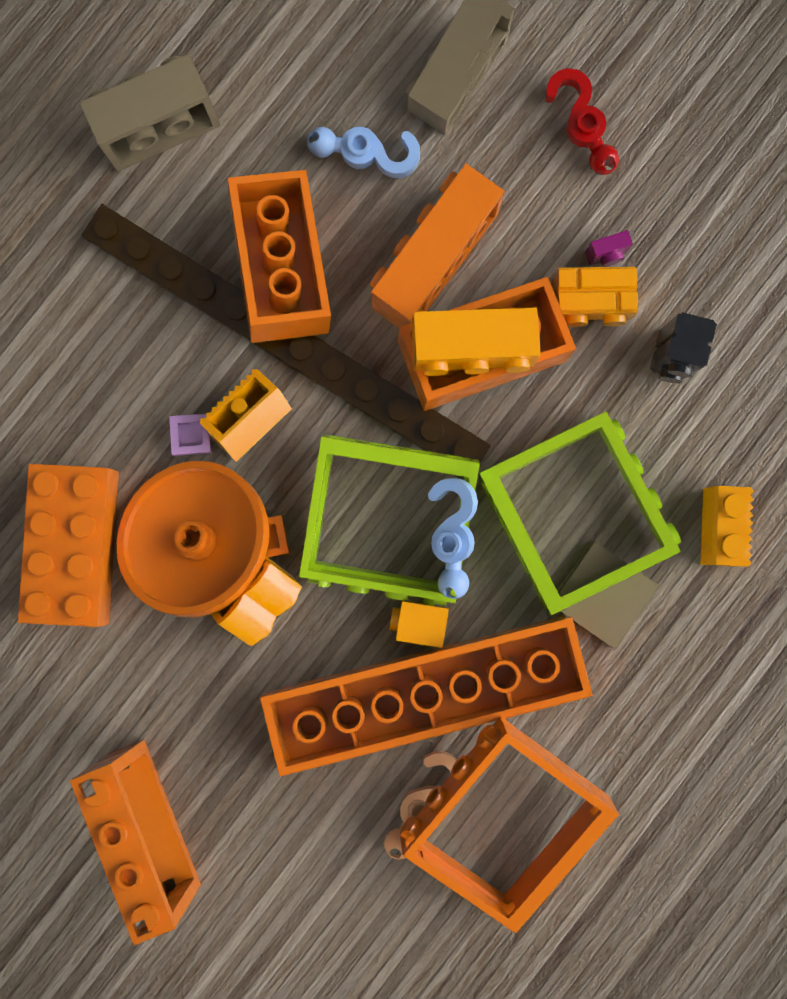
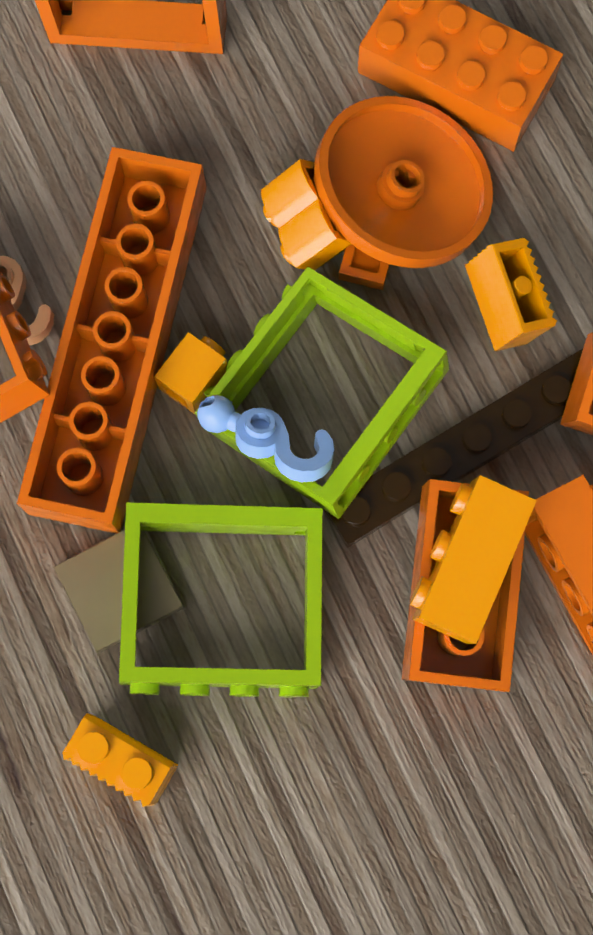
camera: 120 degrees right, 10 degrees down
(189, 436) = (518, 224): lavender plate -> none
(596, 294) = (463, 748): light orange brick -> none
(609, 249) = (509, 793): magenta plate -> none
(683, 347) = (345, 808): black brick -> none

